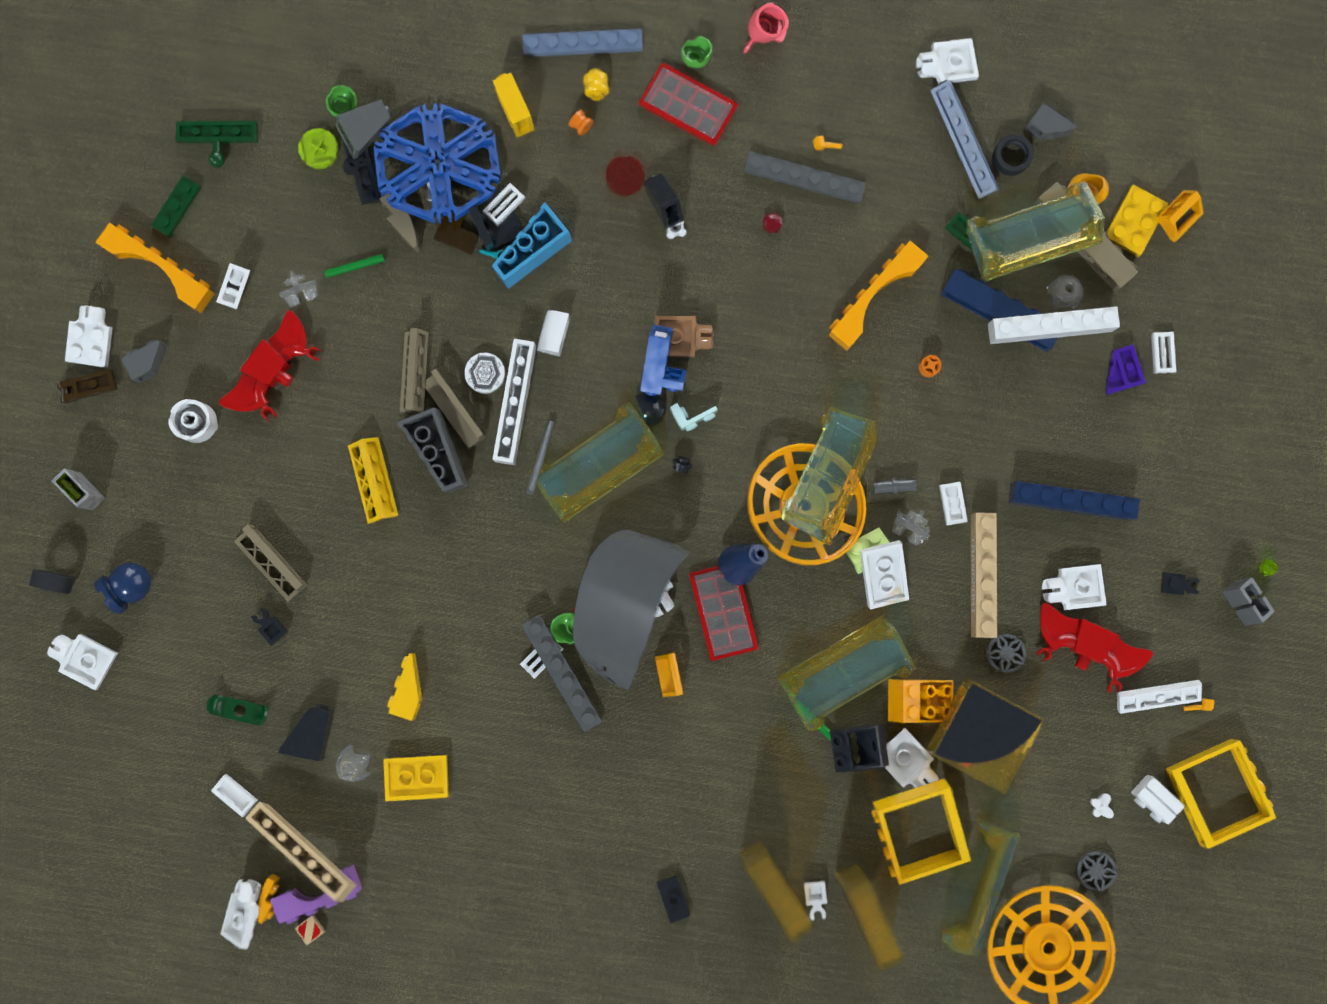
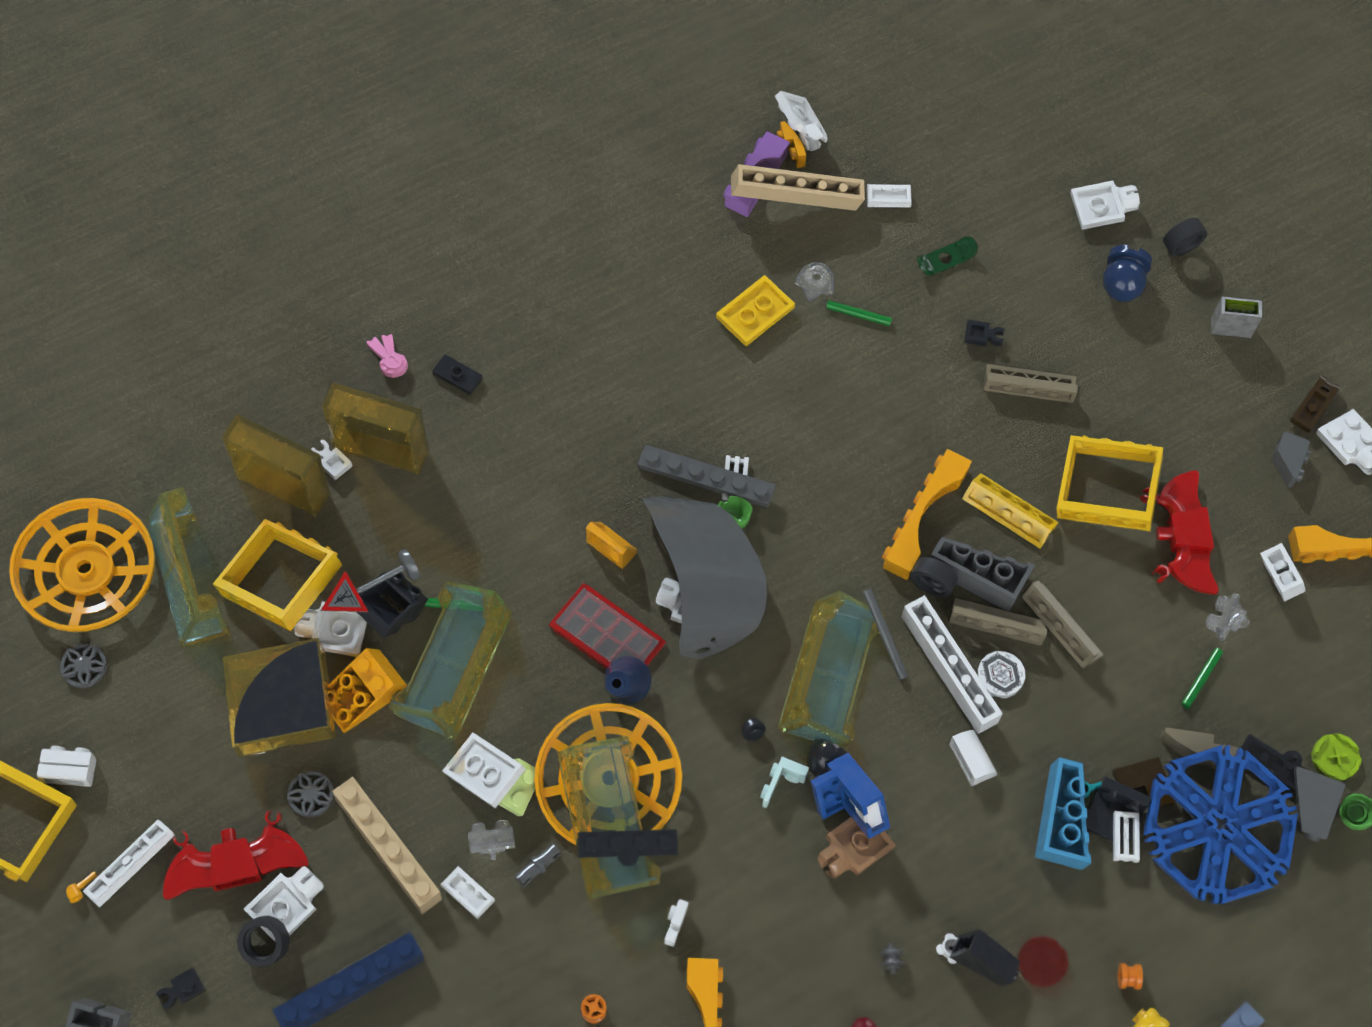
camera: 135 degrees right, 20 degrees down
(182, 419) = (1202, 439): white brick -> none
(255, 455) = (1103, 514): none -> yellow window
(310, 735) = (870, 278): black slope -> none
(310, 929) = (738, 148): tan tile -> none
(342, 716) = (856, 312): none -> green bar
(408, 692) = (819, 365): yellow slope -> none
(472, 470) = (934, 577): none -> black tyre
(473, 506) = (947, 477): none -> light orange arch
(513, 104) = (1206, 935): yellow window -> none
(714, 945) = (392, 363): none -> bright pink piece
(719, 249) = (891, 958): none -> flat silver wheel
(832, 381) = (677, 916): none -> white plate
(832, 447) = (627, 844): none -> black hinge
(890, 771) = (346, 597): none -> dark grey piece
(1101, 806) = (117, 725): white piece -> none
(1120, 568) = (246, 948): none -> black tyre

